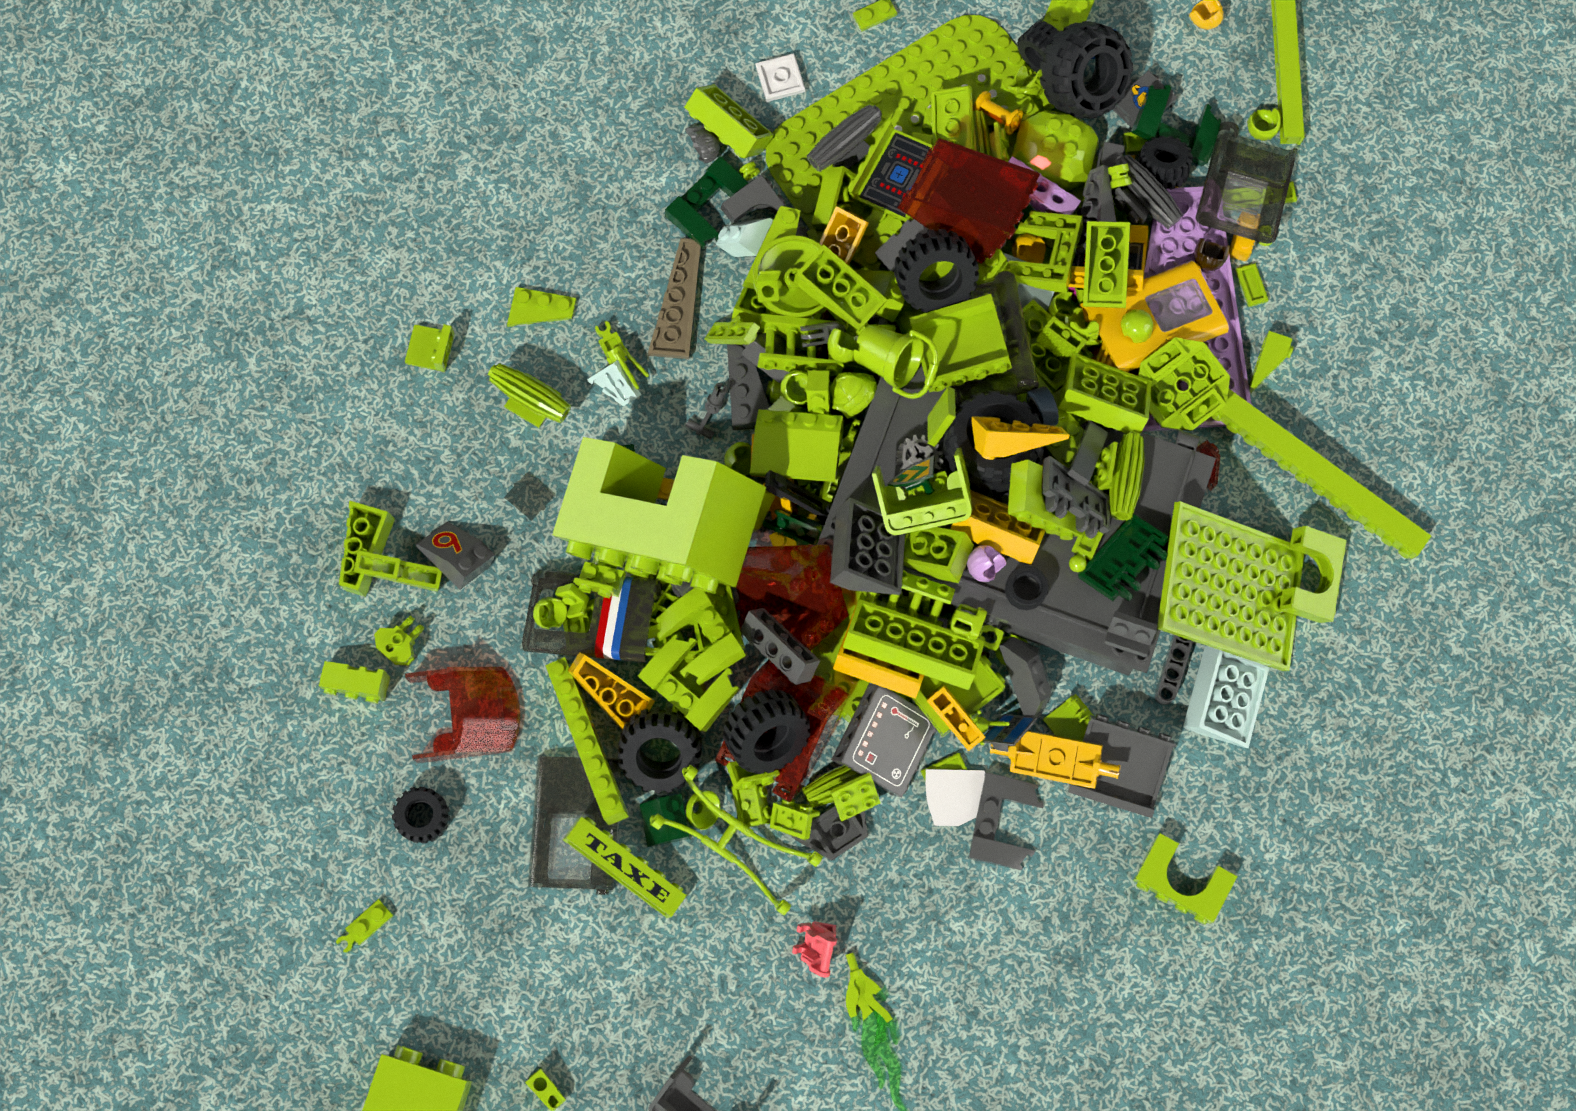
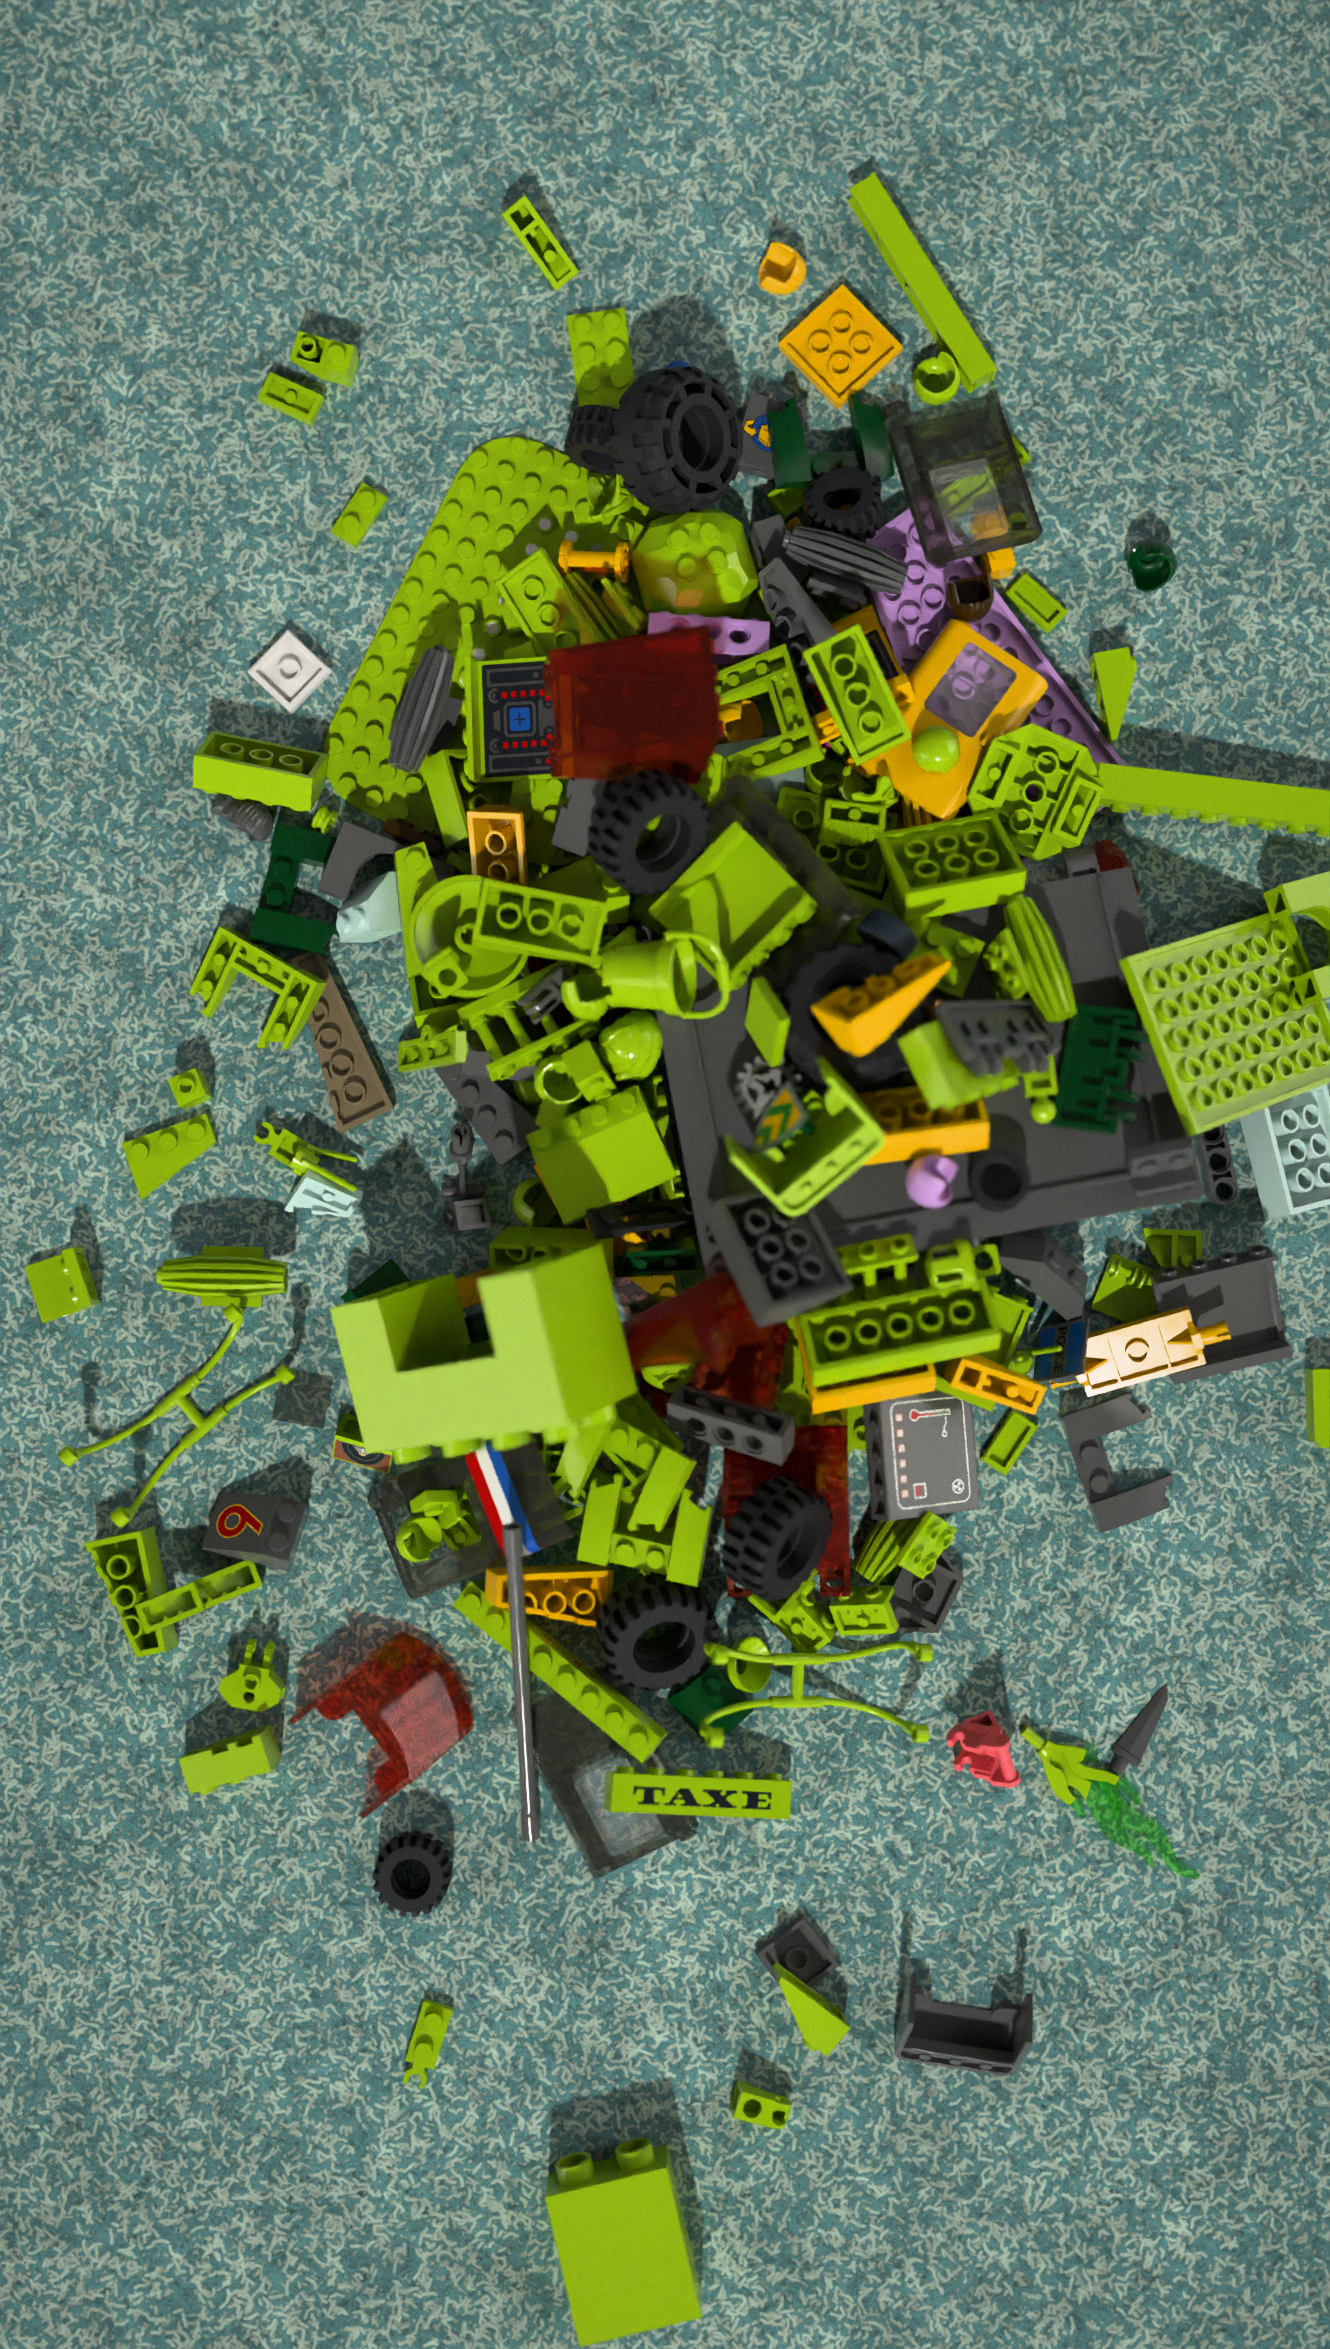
camera: 25 degrees left, 10 degrees up
(457, 452) = (285, 1374): none -> lime bar
(546, 545) = (350, 1447): none -> panel
(575, 277) = (190, 1088): none -> lime brick
(600, 579) = (466, 1468): lime bracket -> none
(603, 644) = (513, 1550): none -> dark grey piece
(613, 1052) = (817, 2018): none -> lime slope
(623, 1012) = (798, 1951): none -> dark grey tile
(650, 216) = (236, 953): none -> lime wedge
(694, 444) = (467, 1215): none -> dark grey bracket
(764, 593) = (669, 1376): none -> lime piece
(793, 202) = (403, 830): none -> dark brown plate
(916, 1002) = (1137, 1737): none -> dark grey bar
(938, 552) = (866, 1202): lime slope -> none
(953, 795) = (1037, 1465): white sticker -> none
(1087, 453) = (977, 962): dark grey tile -> none
(1116, 708) = (1173, 1246): none -> lime wing
(1119, 175) = (802, 562): lime wheel -> none
(1217, 75) = (840, 347): none -> yellow plate
(1334, 300) = (1151, 564): none -> dark green hair

